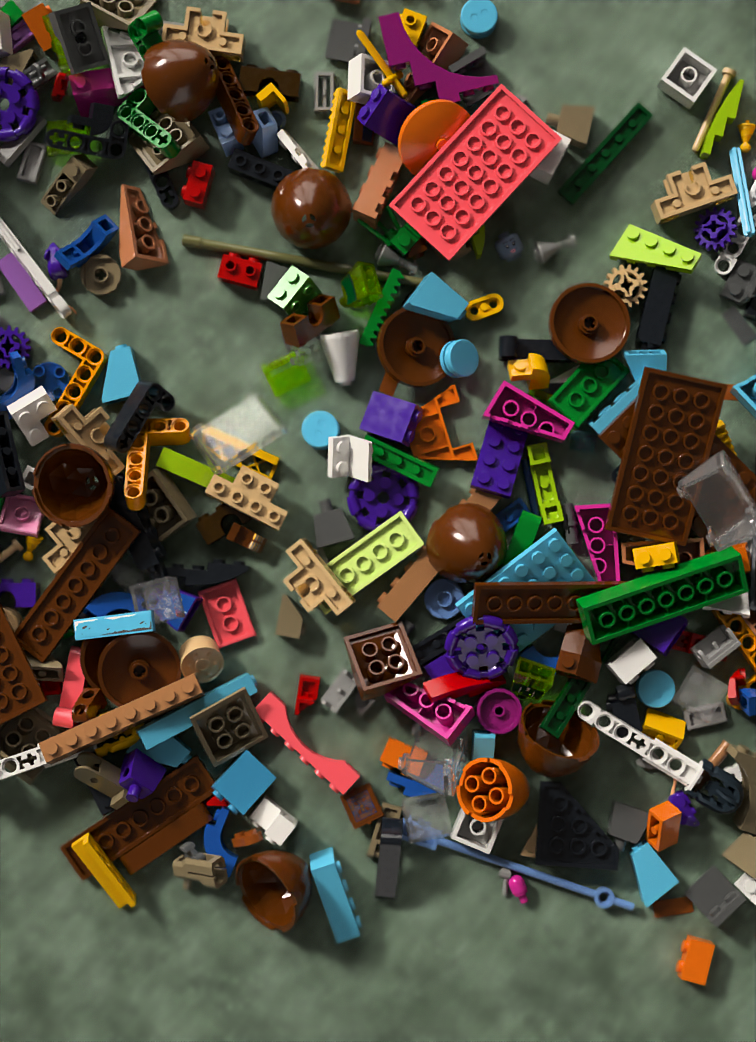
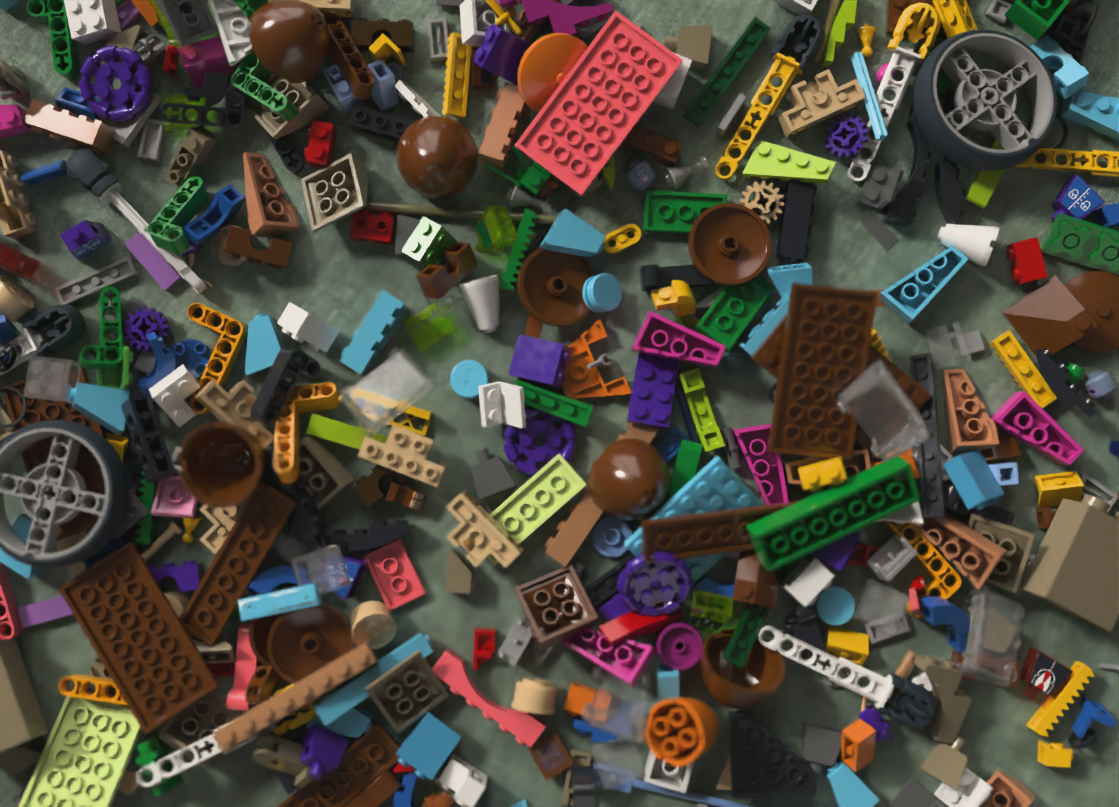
camera: 10 degrees left, 0 degrees up
(42, 248) = (179, 211): none -> green beam
(109, 274) = (239, 244): none -> reddish brown arch
(166, 362) = (306, 327): none -> white brick
(208, 232) = (335, 191): none -> dark tan slope
(231, 374) = (373, 333): none -> medium azure wedge
(352, 745) = (534, 696): none -> tan wheel
(450, 426) = (600, 362): none -> light grey hand
(530, 220) = (659, 146): none -> reddish brown arch
(540, 285) = (676, 210): none -> green piece
(605, 195) = (731, 114): none -> light grey tile
(663, 156) = (785, 68): none -> yellow piece

